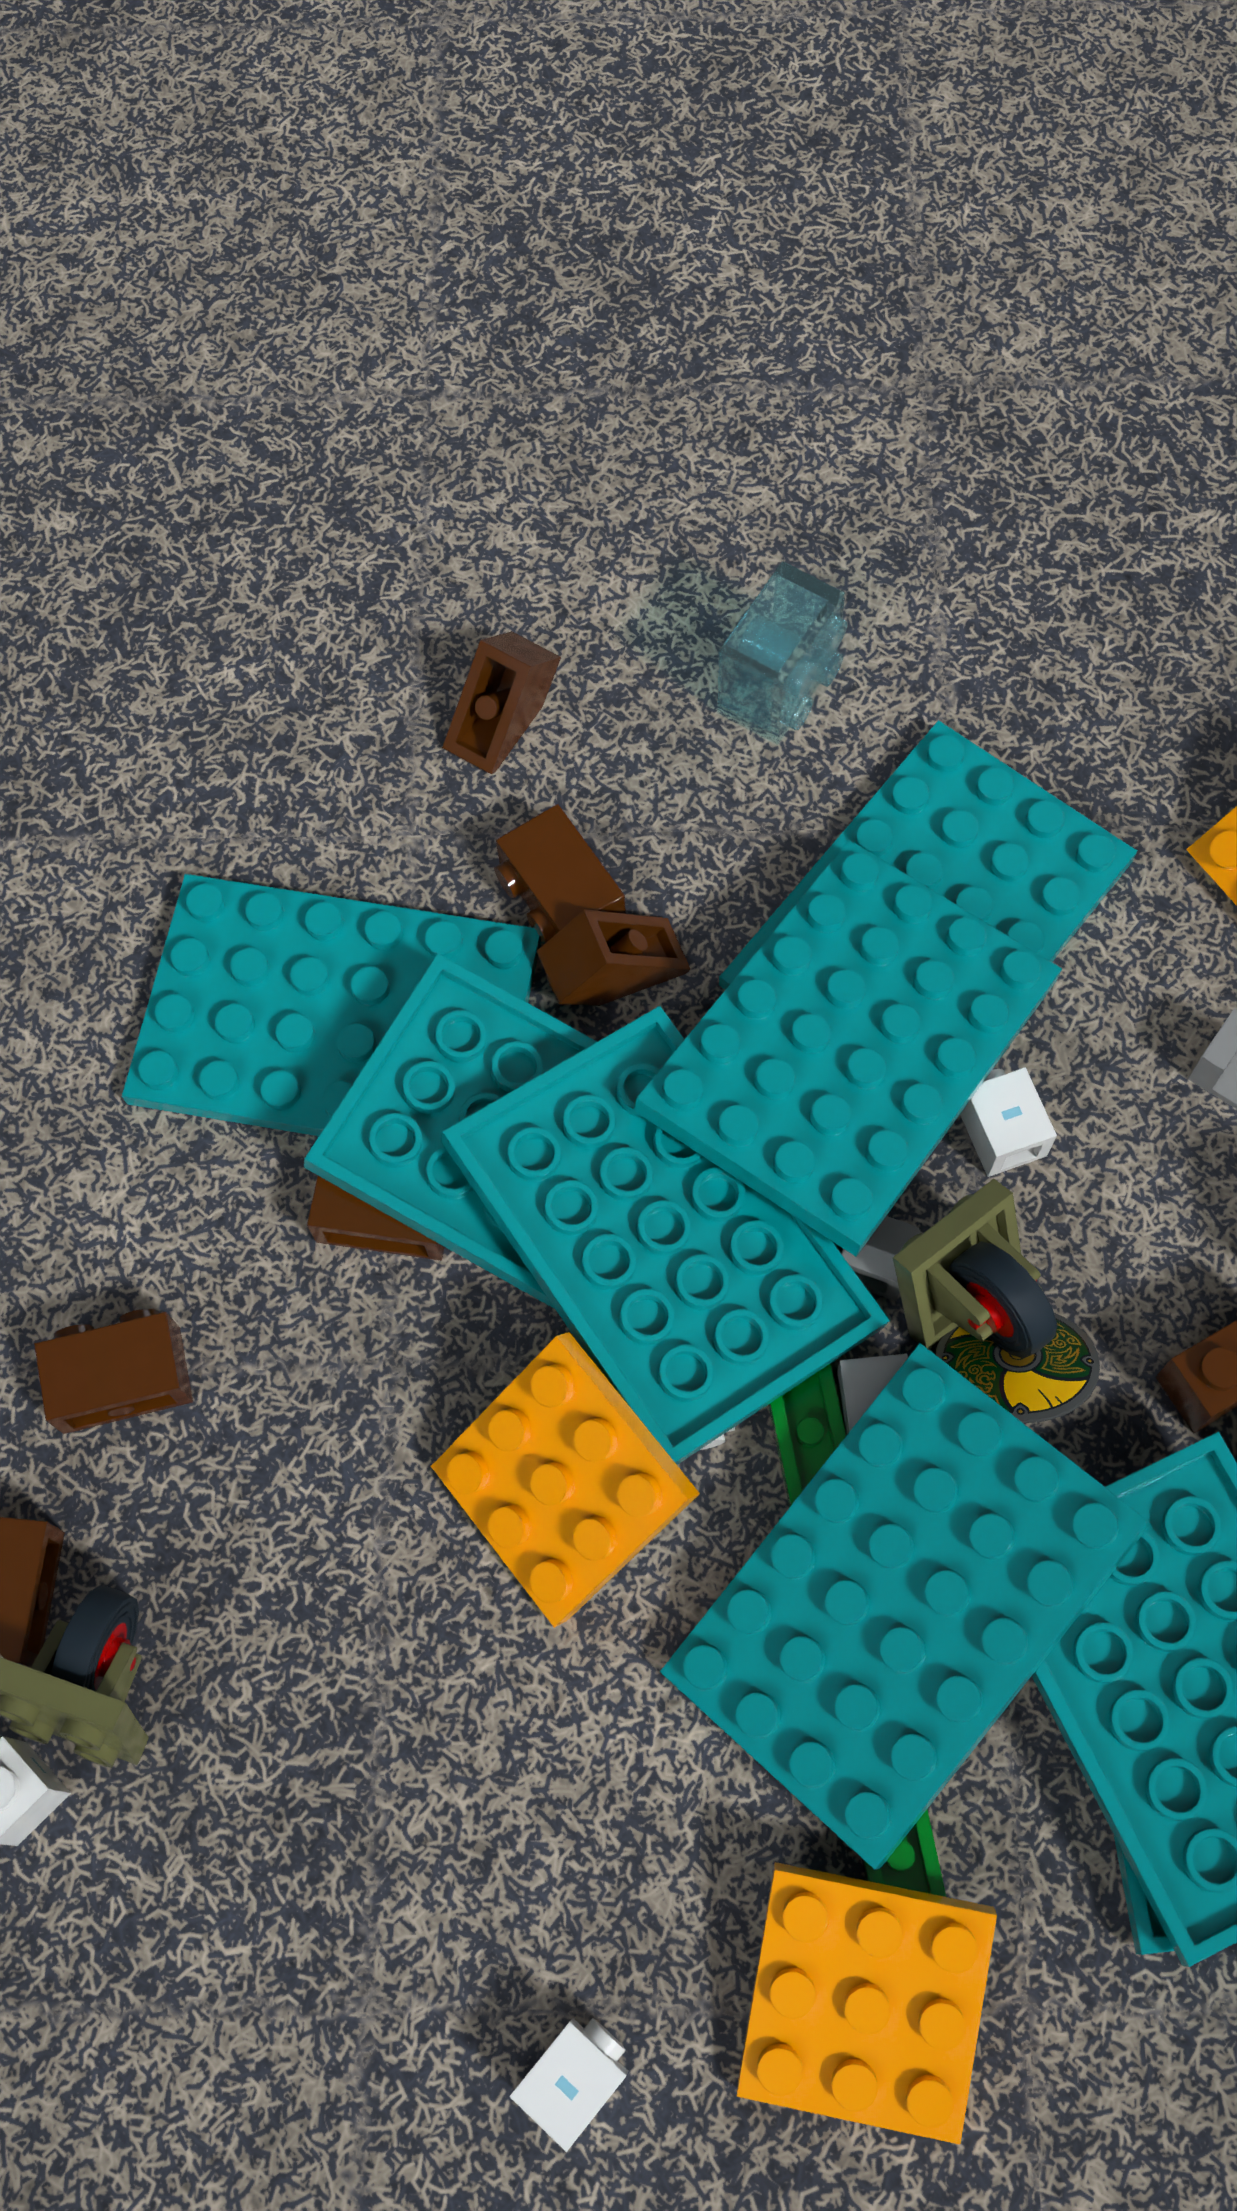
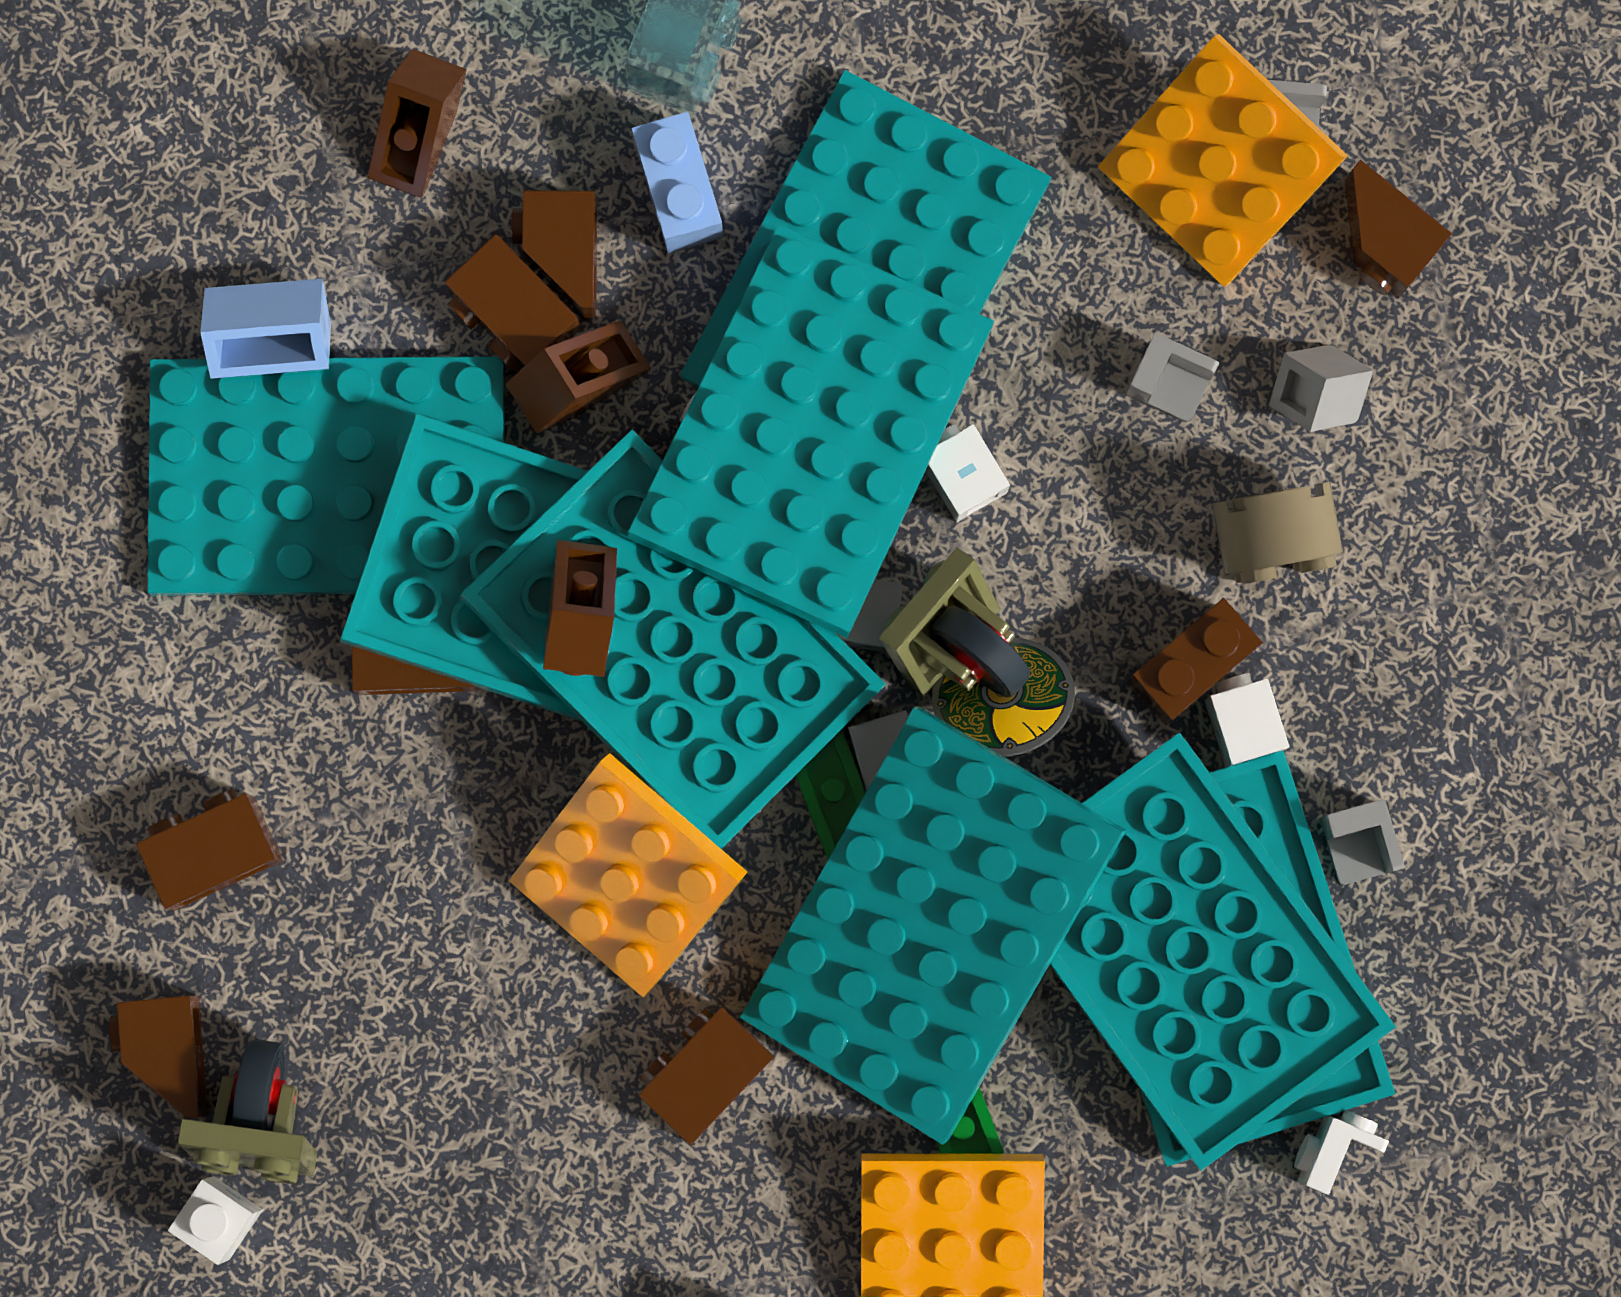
camera: 15 degrees left, 15 degrees up
(305, 858) = (266, 328): none -> light blue brick
(566, 1169) = (580, 609): none -> reddish brown slope
(607, 1729) = (704, 1073): none -> reddish brown brick
(623, 828) = (561, 242): none -> reddish brown slope
(751, 792) = (678, 182): none -> light blue brick

